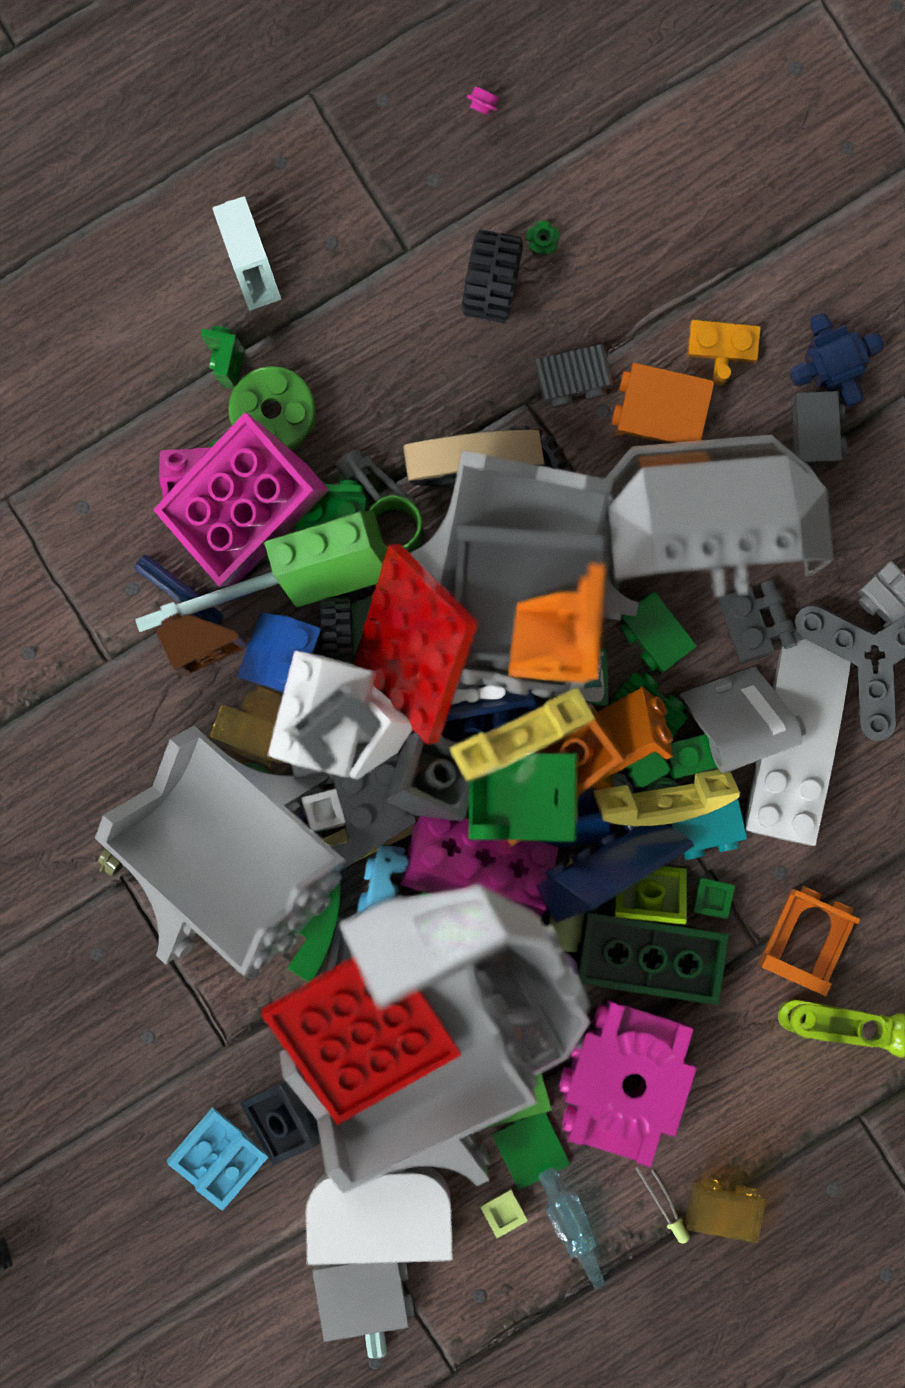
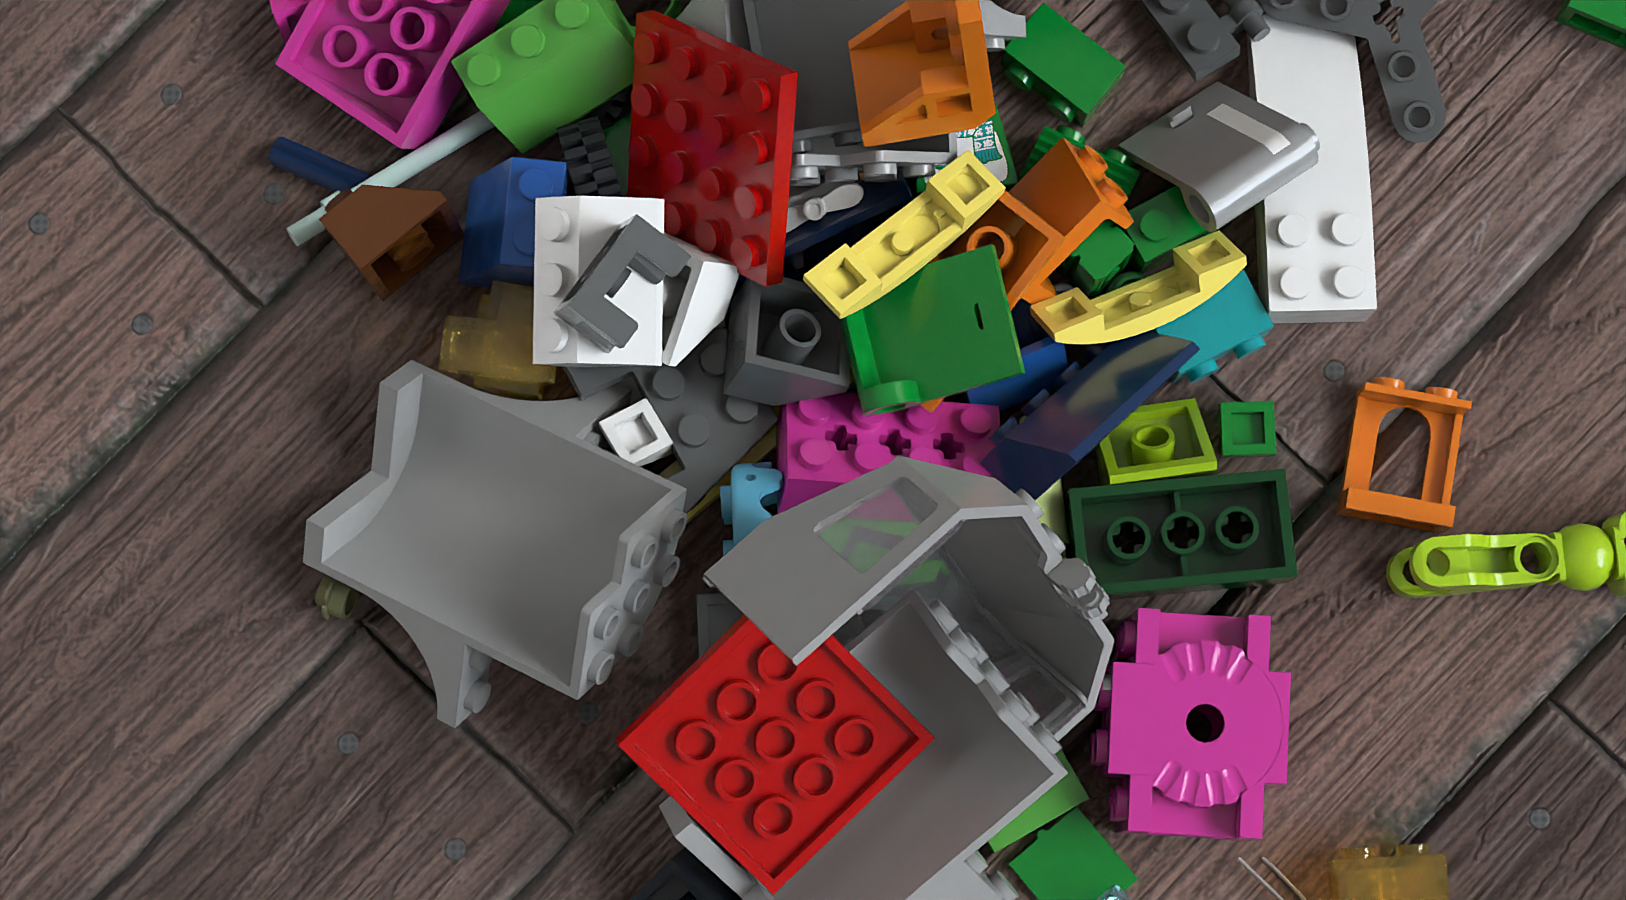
camera: 15 degrees left, 5 degrees down
(319, 937) = (673, 625): green slope -> none

